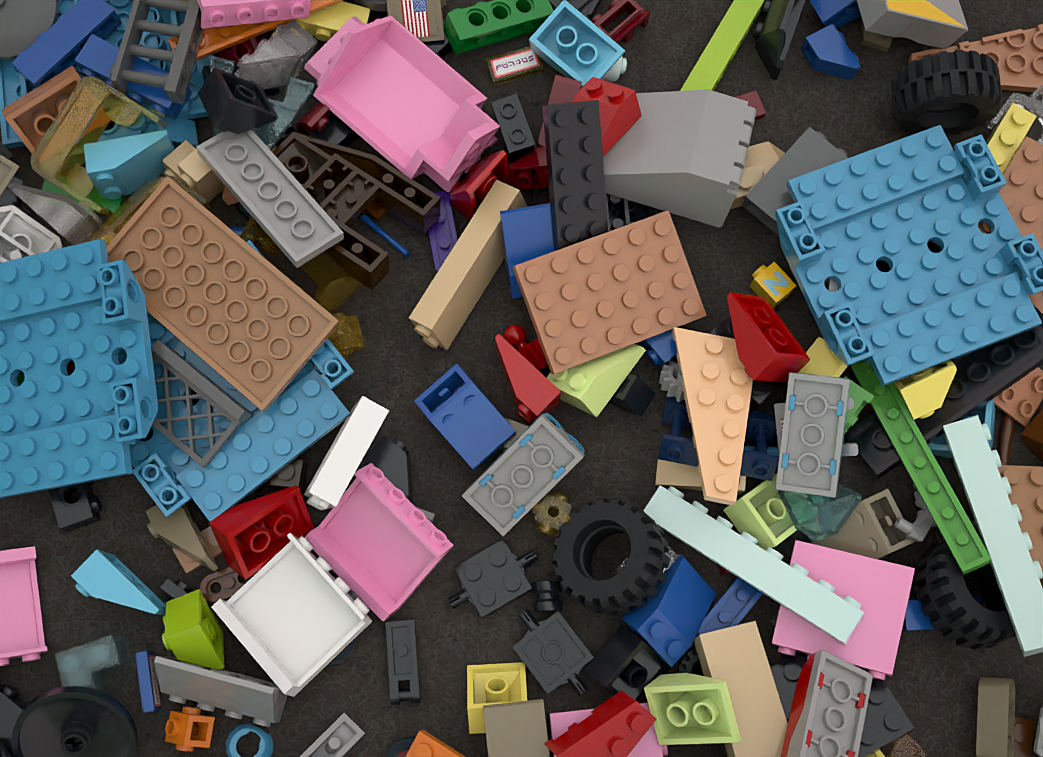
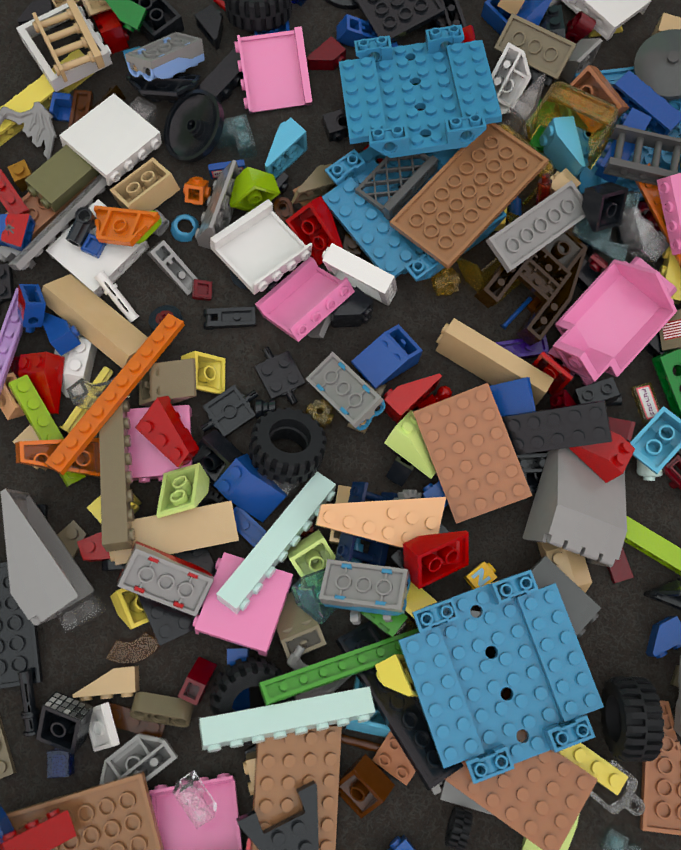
camera: 90 degrees right, 0 degrees up
(208, 189) = (544, 187): none -> clear red cylinder
(357, 709) = (202, 290): none -> dark red tile
(952, 671) = (197, 681): none -> dark red slope

